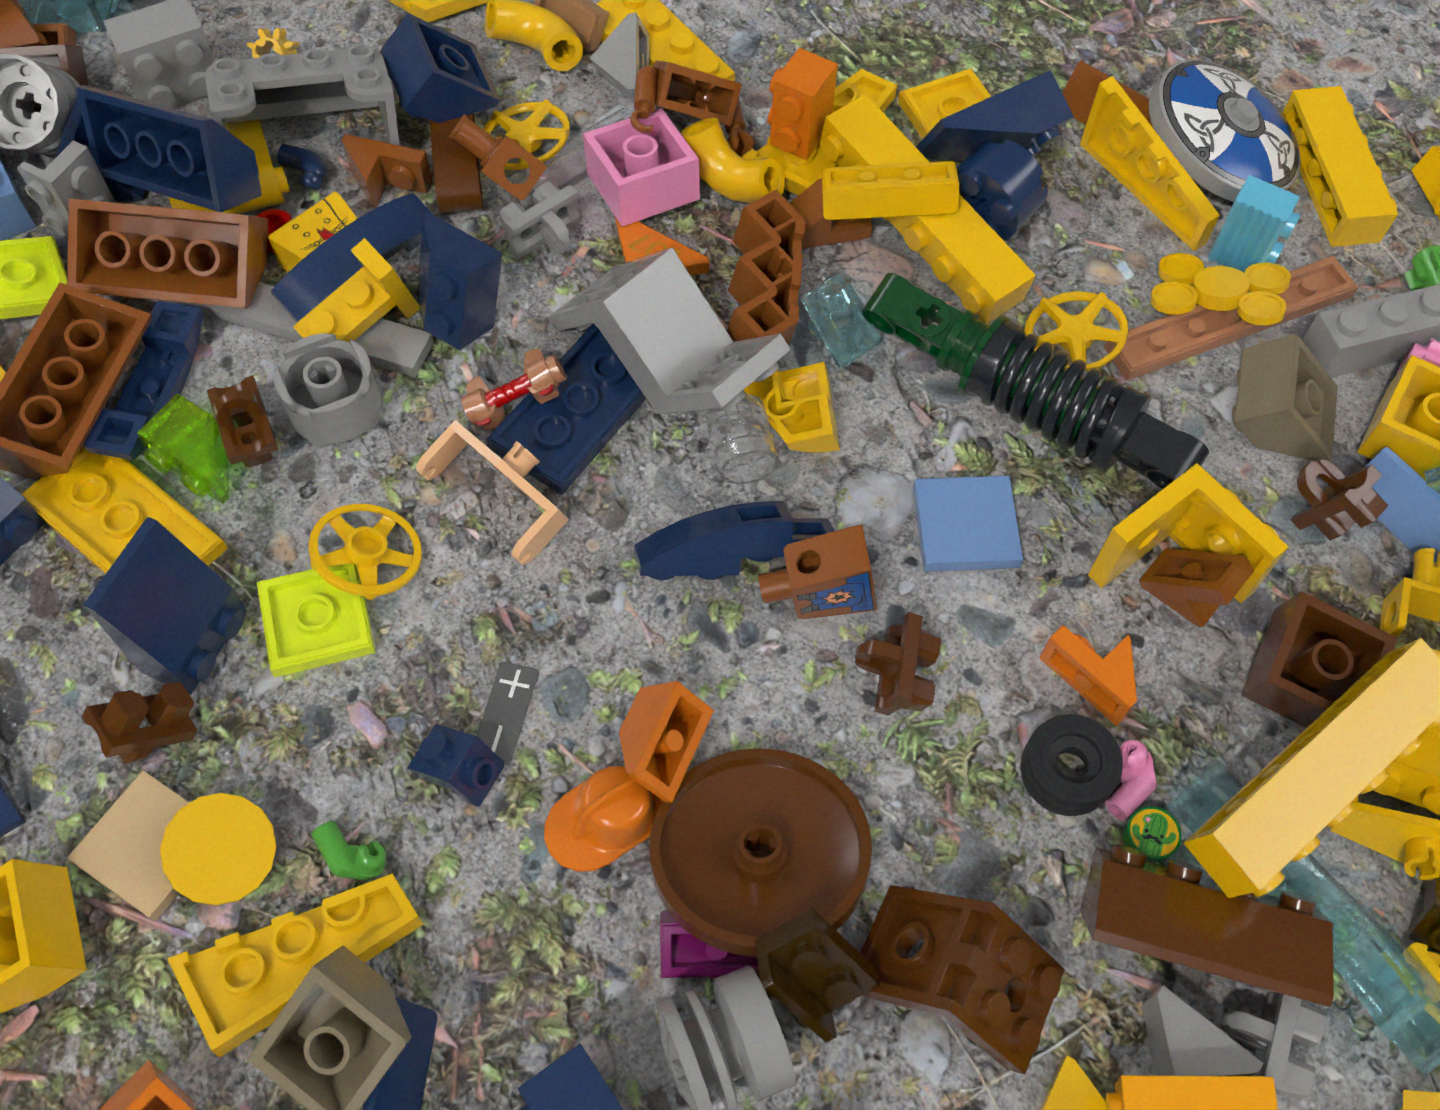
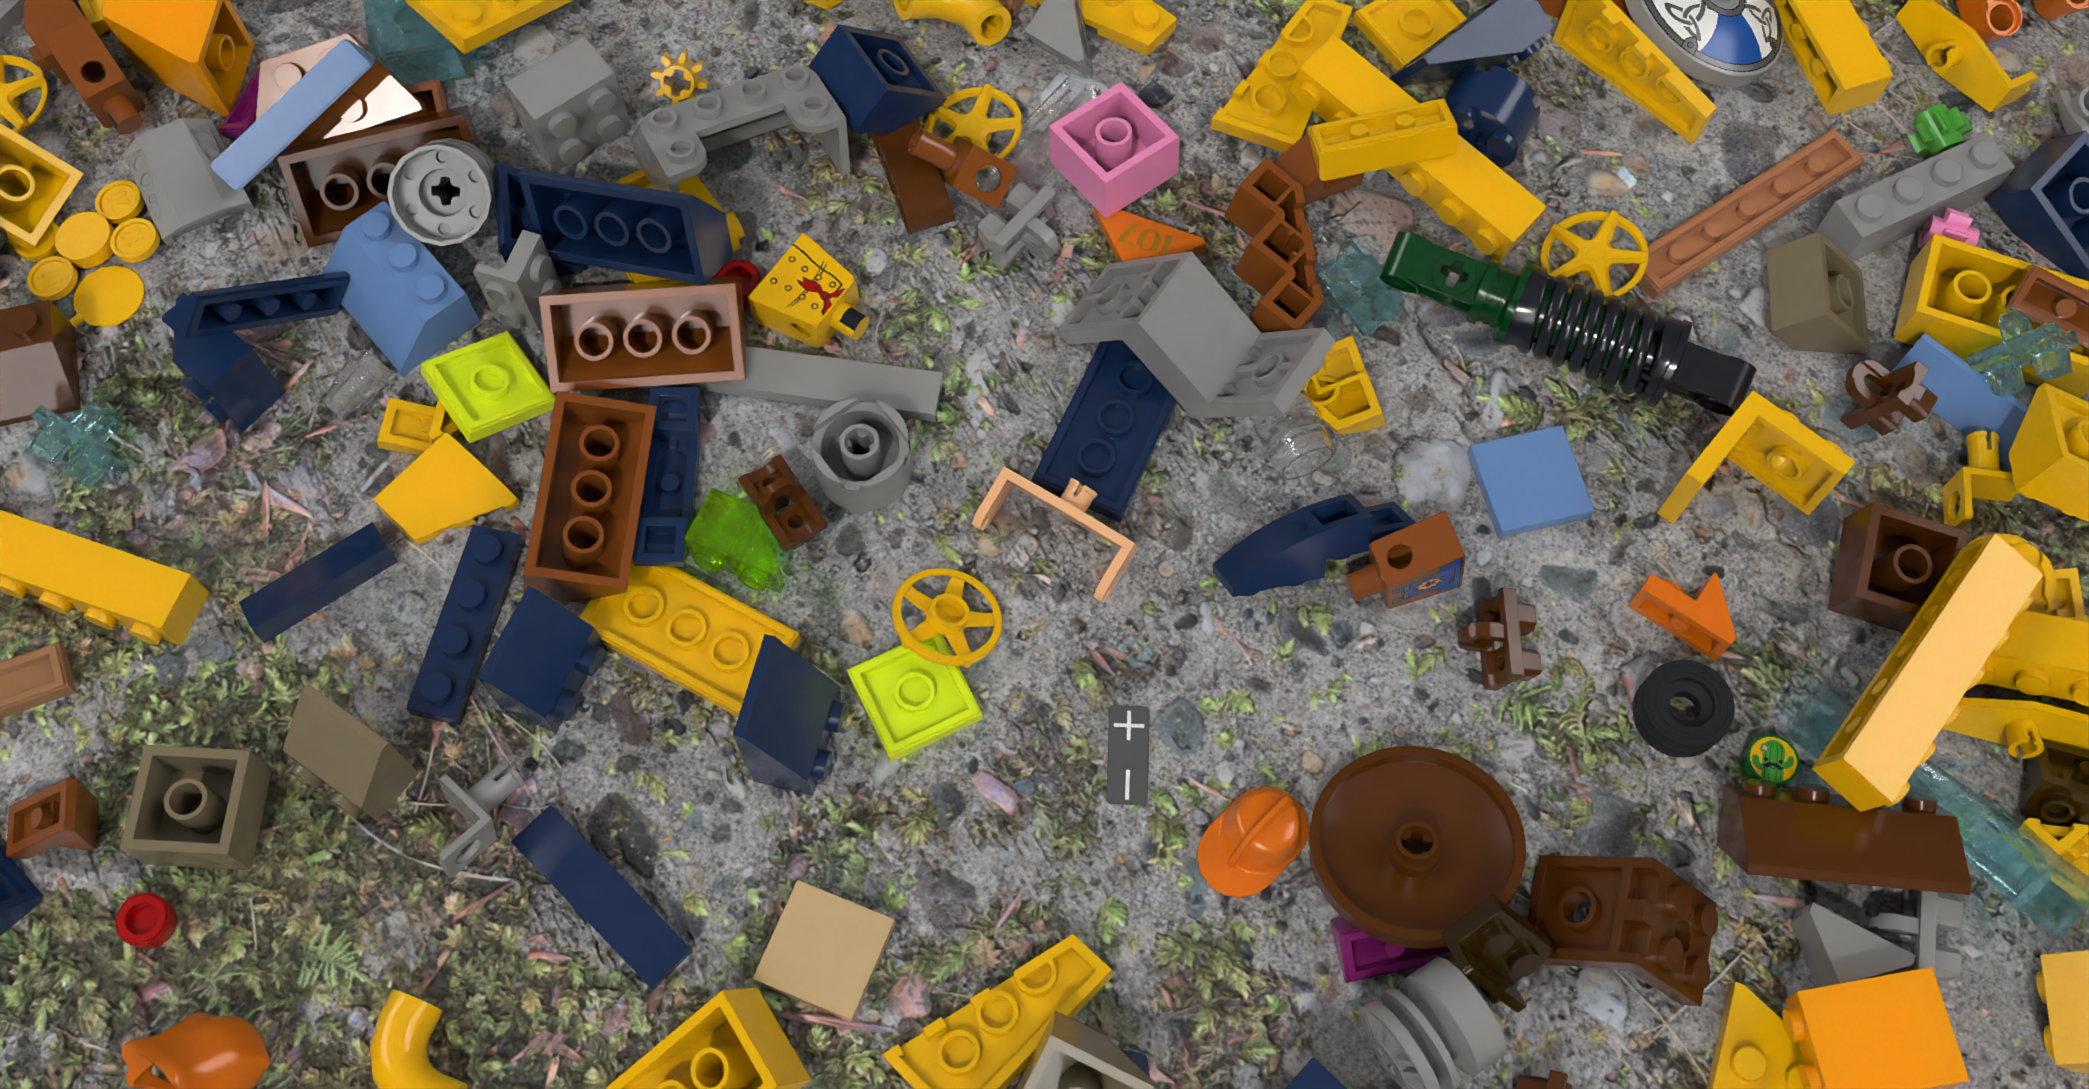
camera: 10 degrees left, 5 degrees up
(120, 719) = (788, 832): reddish brown hips -> none
(218, 849) = (899, 942): yellow tile -> none
(307, 161) = (751, 198): dark blue arm -> none
(332, 263) = (844, 304): dark blue slope -> none
(348, 860) = (1022, 929): bright green arm -> none
(360, 299) = (863, 354): yellow bracket -> none
(384, 164) = (829, 189): dark orange slope -> none
(456, 283) = (958, 316): dark blue slope -> none
(457, 763) = (1099, 815): dark blue bracket -> none
(540, 378) = (1074, 405): nougat piece -> none
(662, 736) = (1296, 753): orange slope -> none
(691, 94) = (1149, 59): dark orange torso -> none
(726, 170) = (1205, 139): yellow cylinder -> none
(801, 102) = (1269, 55): orange brick -> none
(1137, 780) = (1748, 712): bright pink arm -> none
(1196, 581) = (1765, 503): dark orange slope -> none
(1221, 288) = (1730, 186): yellow piece -> none
(1254, 224) = (1755, 115): medium azure brick -> none

